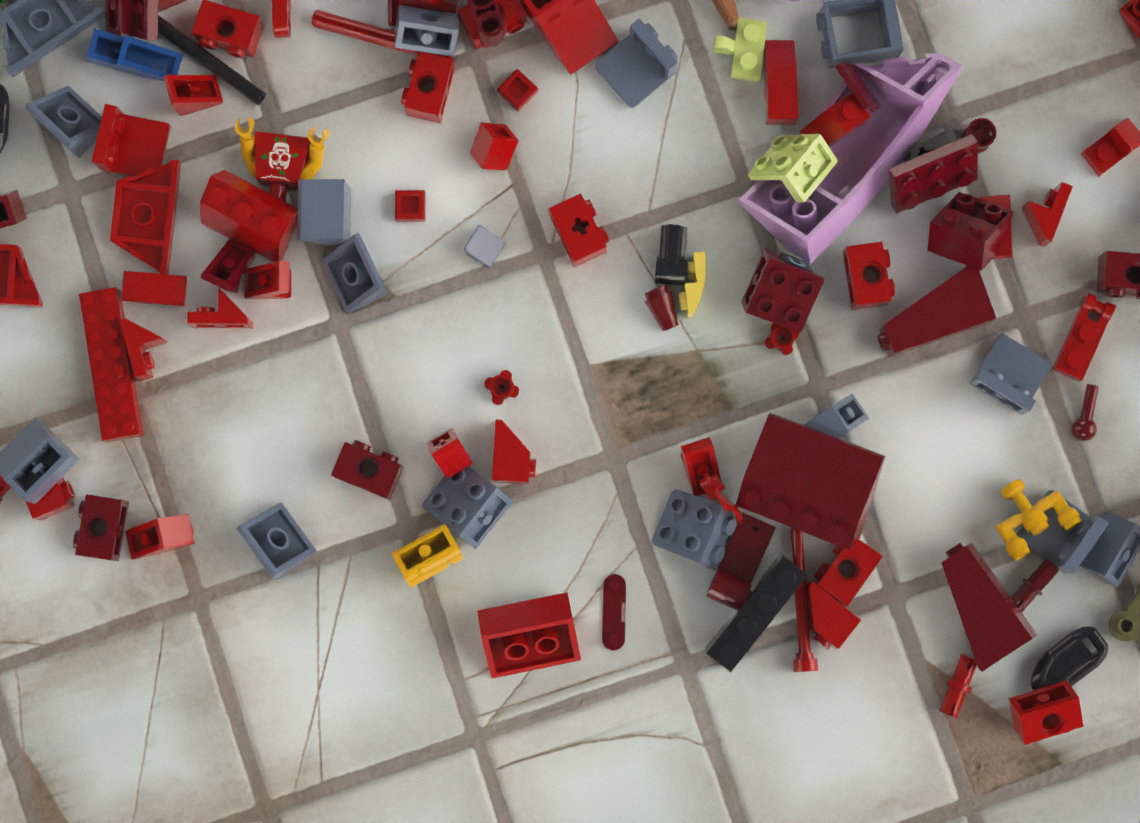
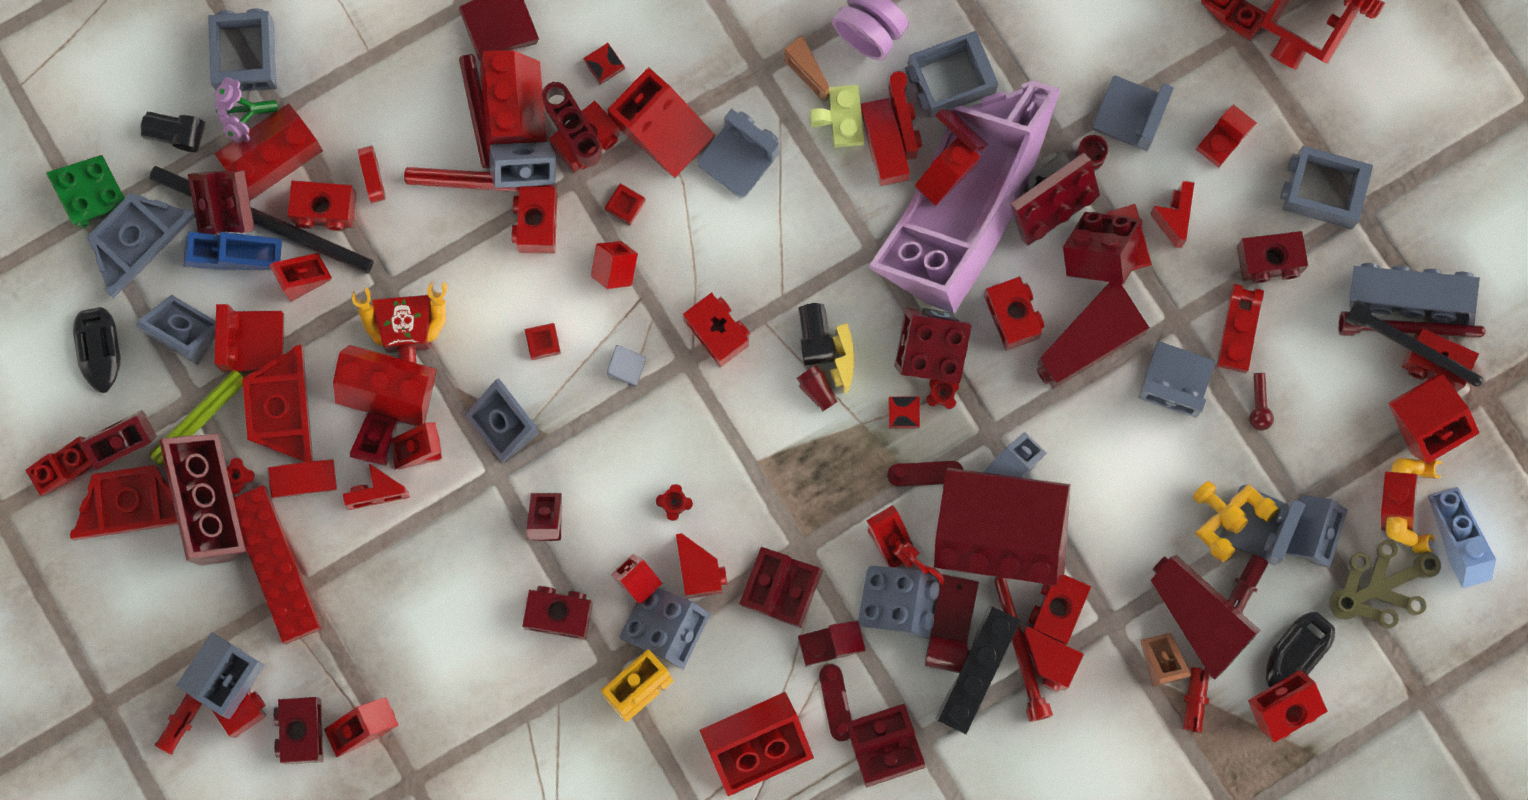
camera: 15 degrees left, 5 degrees down
(53, 287) = (202, 498): none -> dark red slope
(67, 209) = (202, 411): none -> lime axle
(101, 273) = (245, 475): none -> red plate
(137, 341) = (297, 534): red slope -> none
(276, 540) = (481, 704): sand blue slope -> none
(324, 211) = (458, 364): sand blue slope -> none
(375, 375) = (545, 517): none -> dark red slope
(585, 491) = (781, 587): none -> dark red slope
(622, 555) = (831, 643): none -> dark red slope
(651, 663) = (885, 745): none -> dark red slope
(740, 348) = (904, 412): none -> red tile
(744, 410) = (920, 473): none -> dark red piece
(796, 161) = (920, 216): yellowish green bracket -> none
(805, 59) = (904, 114): none -> red plate
(937, 641) = (1164, 660): none -> nougat slope
(1027, 104) = (1132, 112): none -> sand blue bracket

